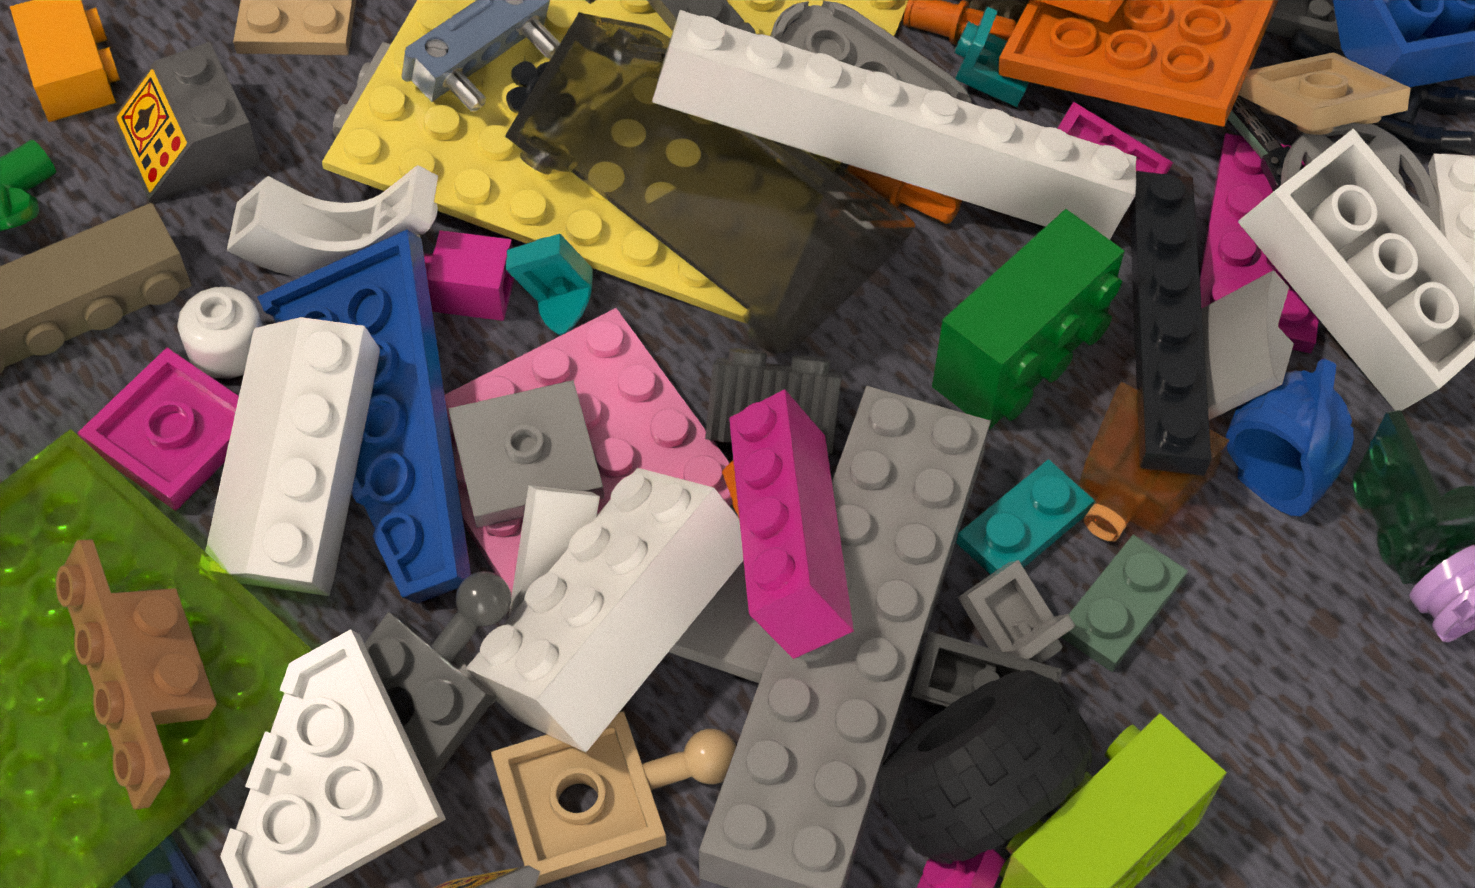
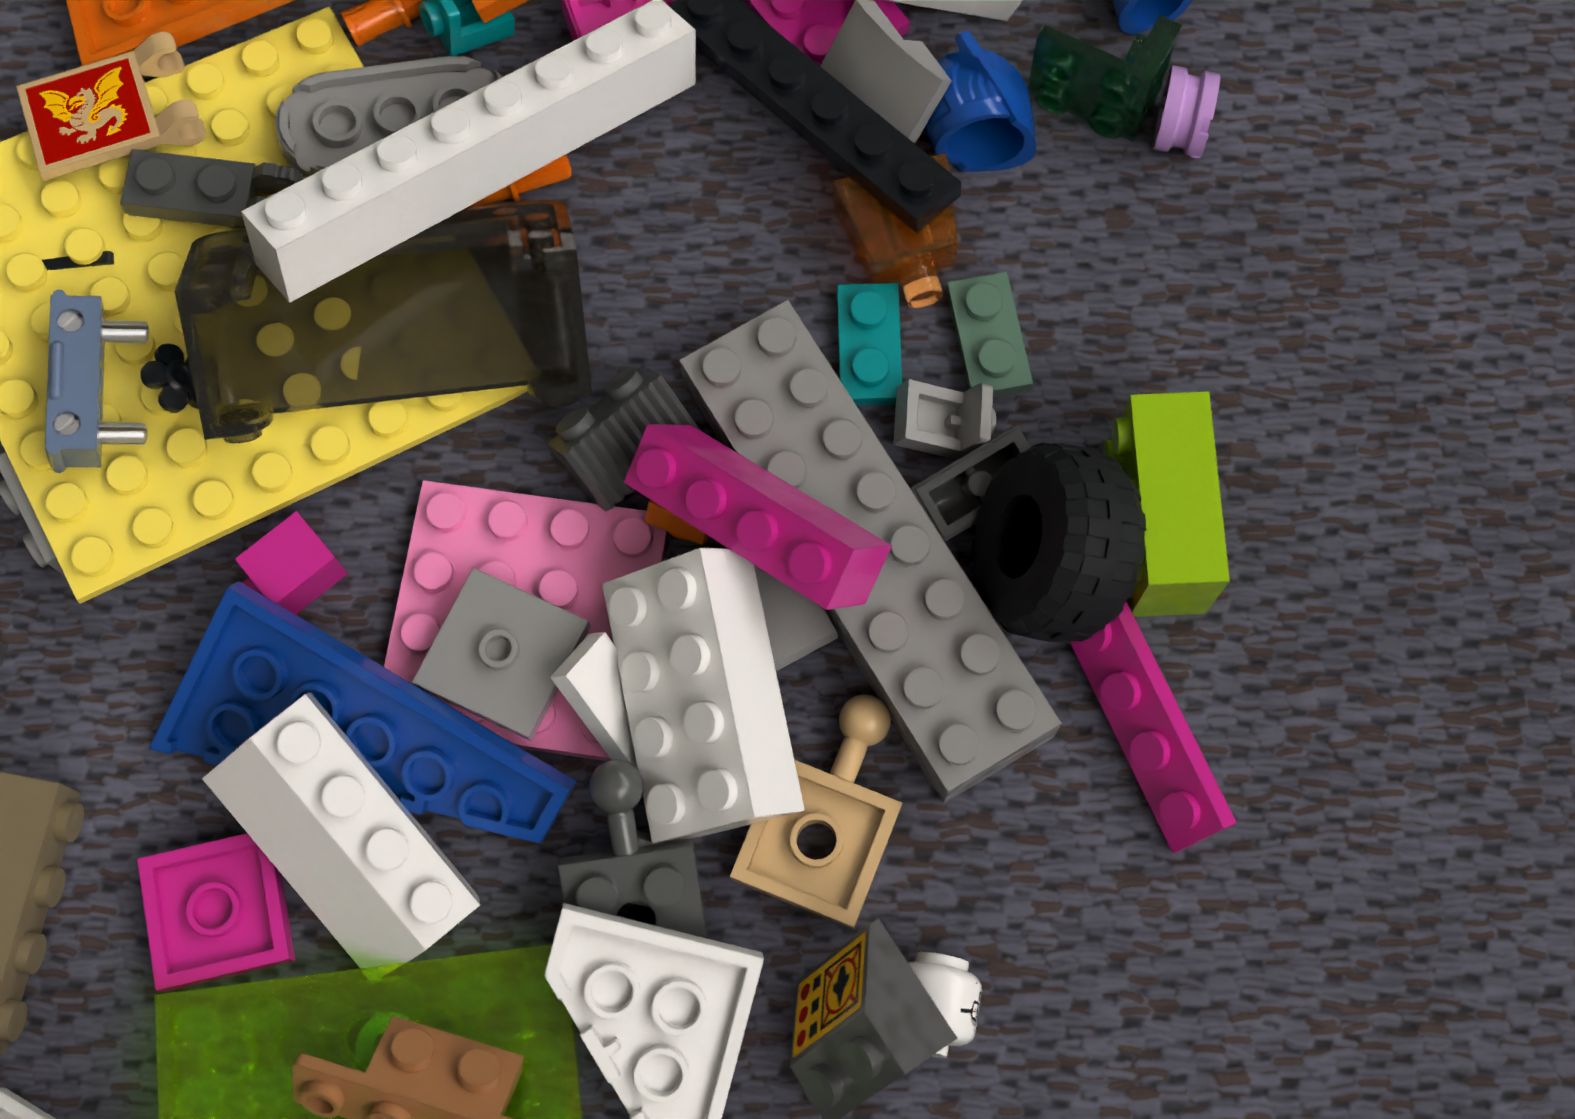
camera: 45 degrees left, 15 degrees up
(218, 330) = (165, 803): white head -> none
(302, 233) = (151, 646): white arch -> none
(554, 278) = (360, 505): teal plate -> none
(1028, 320) = (728, 197): green brick -> none

